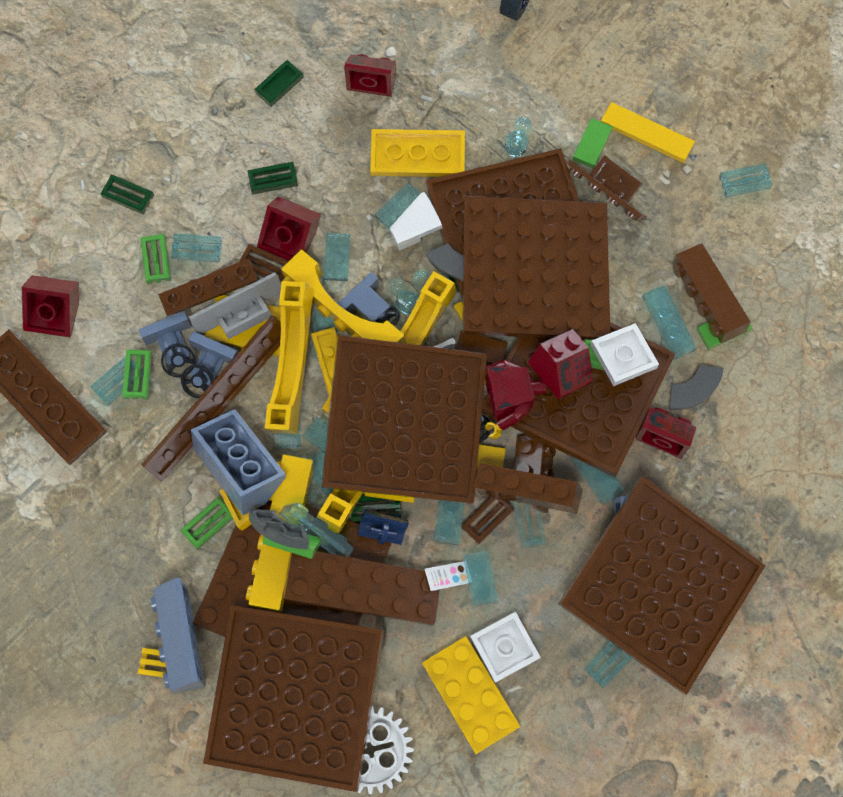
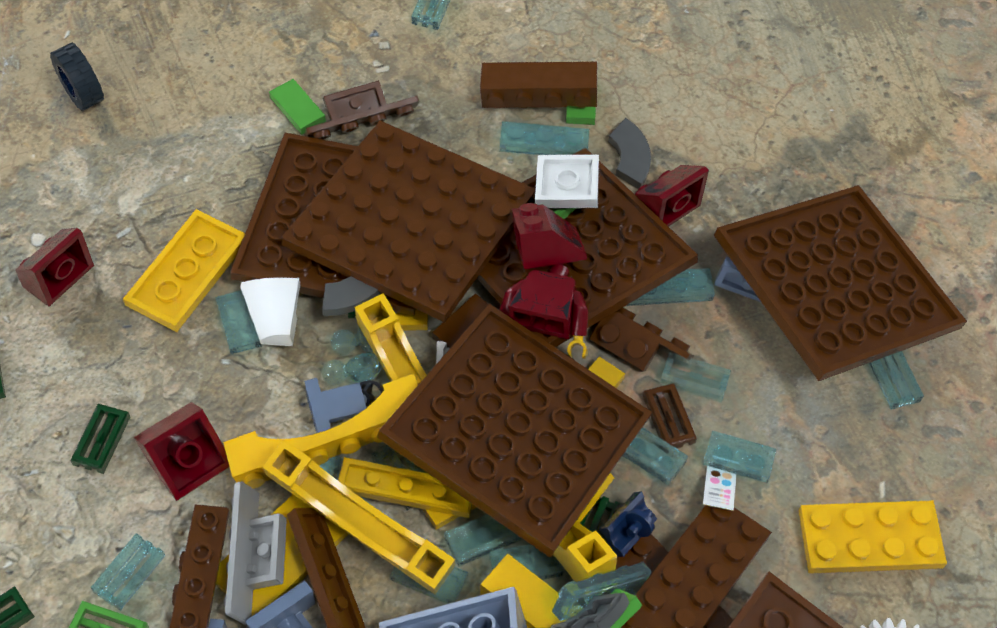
camera: 65 degrees left, 15 degrees down
(250, 248) = (200, 491): reddish brown tile -> none
(337, 257) = (252, 415): clear light blue tile -> none
(505, 647) = (833, 470): white plate -> none
(518, 137) = (246, 170): clear light blue plate -> none
(528, 488) = (668, 344): reddish brown brick -> none
(648, 132) = (321, 54): yellow tile -> none

